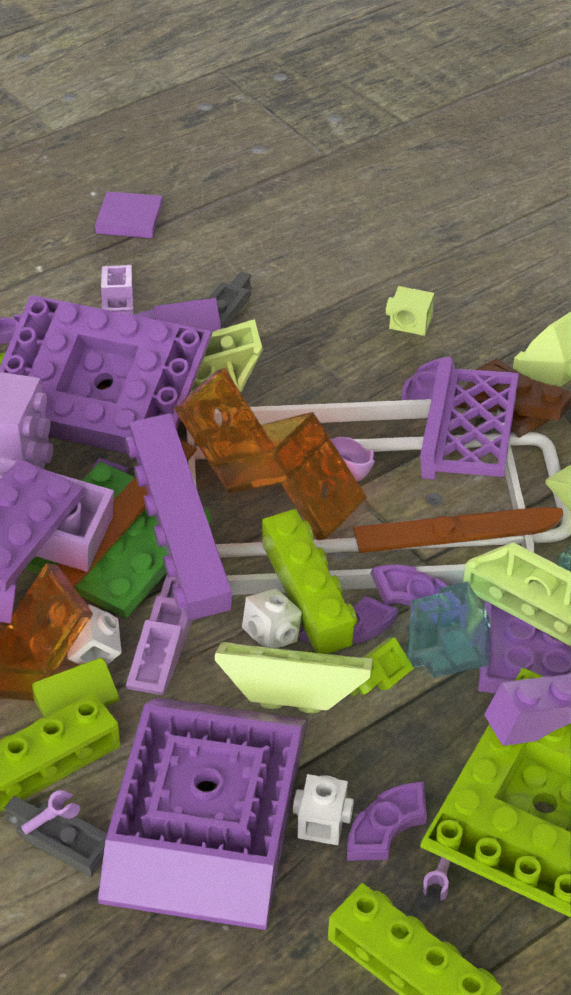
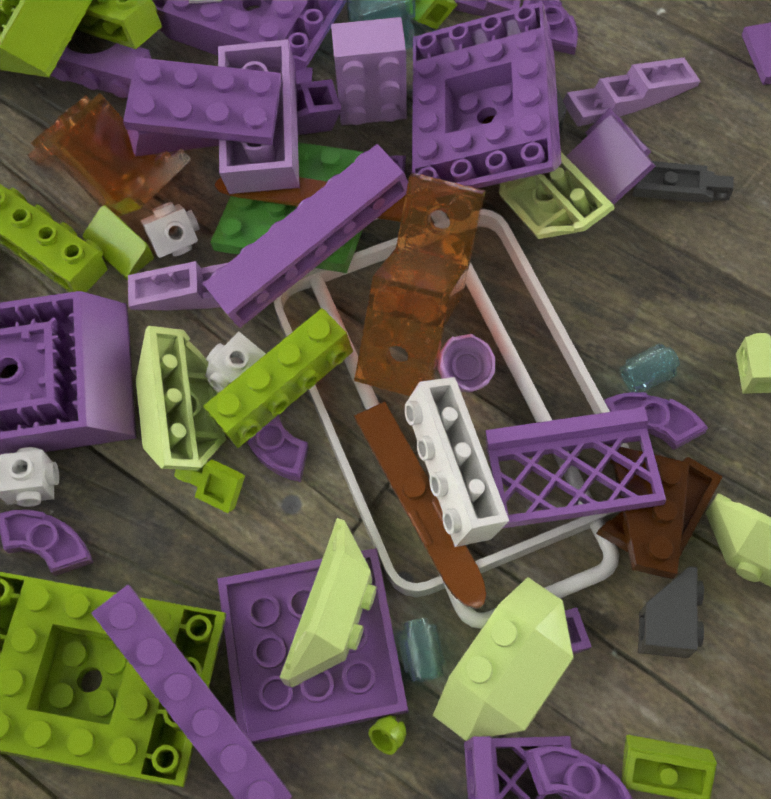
camera: 75 degrees right, 20 degrees up
(387, 370) = (650, 368): none -> clear light blue brick
(404, 583) = (324, 488): medium lavender tile -> none
(438, 483) = (455, 462): none -> white brick
(449, 631) = (260, 531): clear light blue plate -> none

